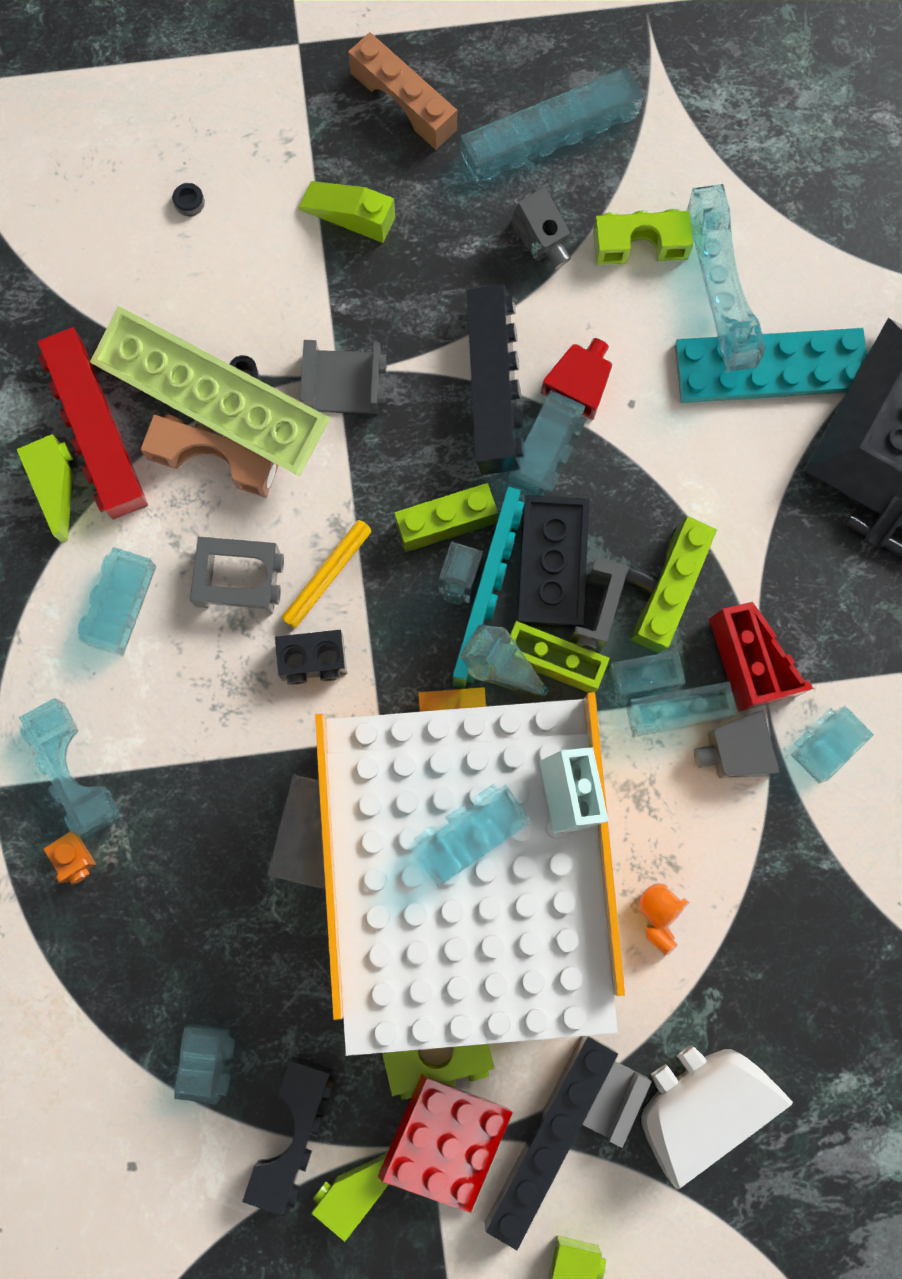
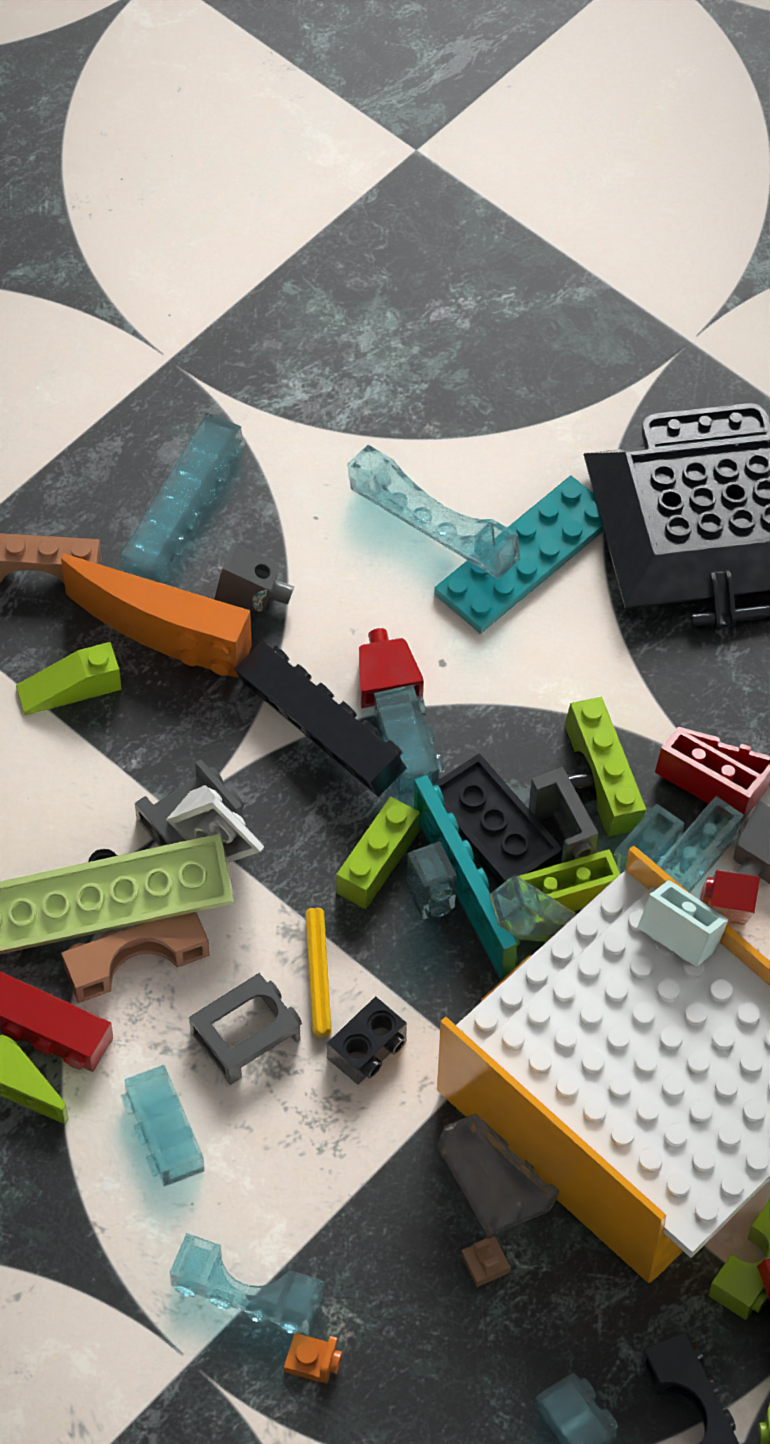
camera: 40 degrees left, 20 degrees down
(249, 890) = (485, 1261): none -> medium nougat tile
(341, 403) = (205, 815): none -> white slope
(453, 213) = (162, 616): none -> orange slope
(470, 834) = (636, 1014): clear light blue brick -> none
(647, 786) = (731, 895): none -> red brick
(666, 230) = (352, 513): lime arch -> none

